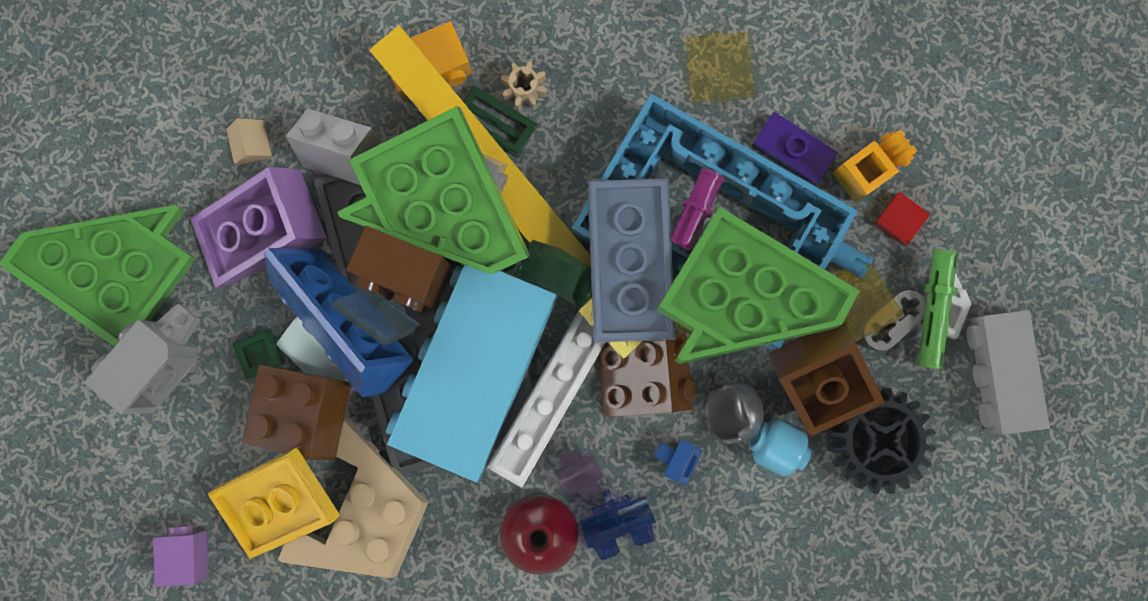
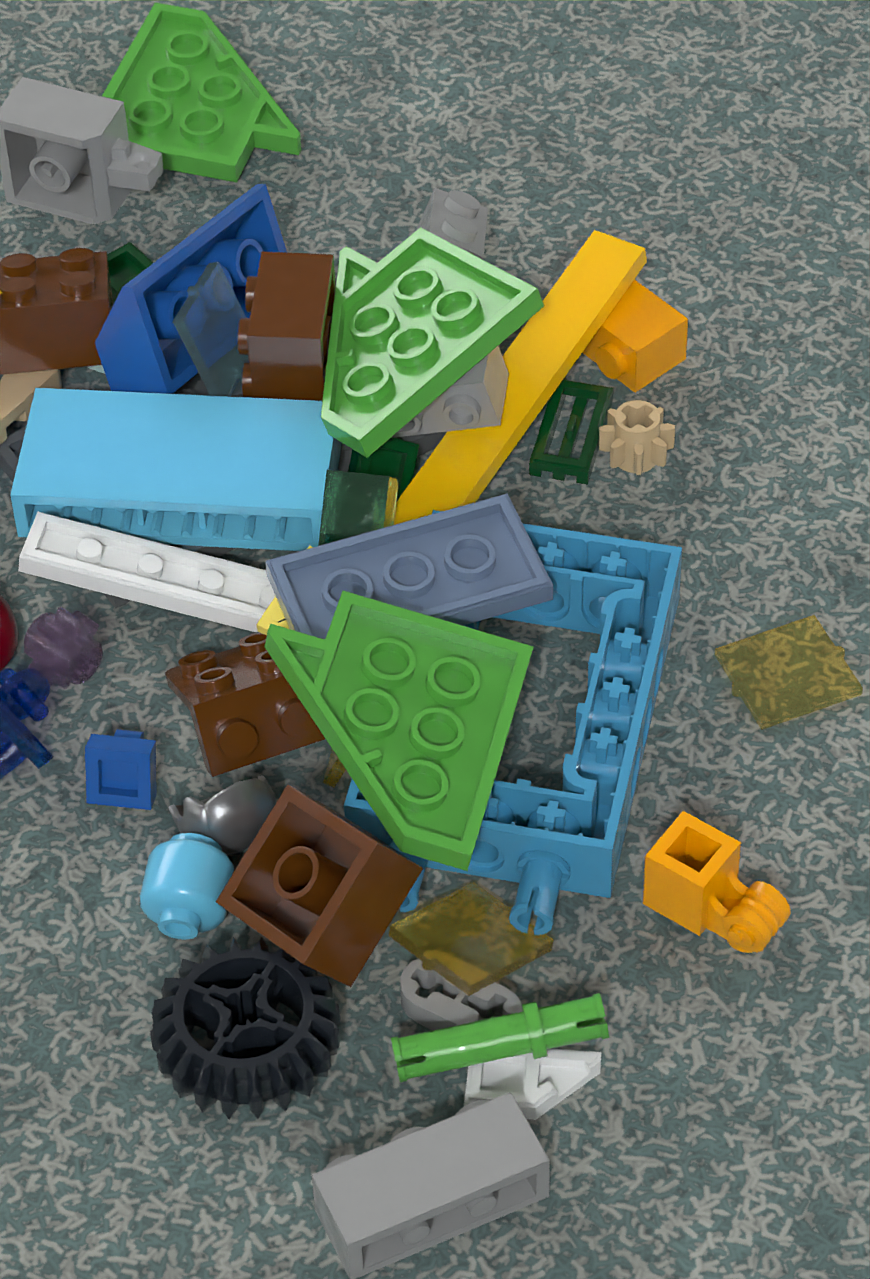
camera: 70 degrees right, 35 degrees down
(248, 141) = (415, 186): tan slope -> none
(258, 215) = (326, 211): medium lavender slope -> none
(697, 209) = (543, 631): magenta axle -> none
(794, 149) = (699, 783): dark purple plate -> none
(902, 218) = (644, 974): red tile -> none

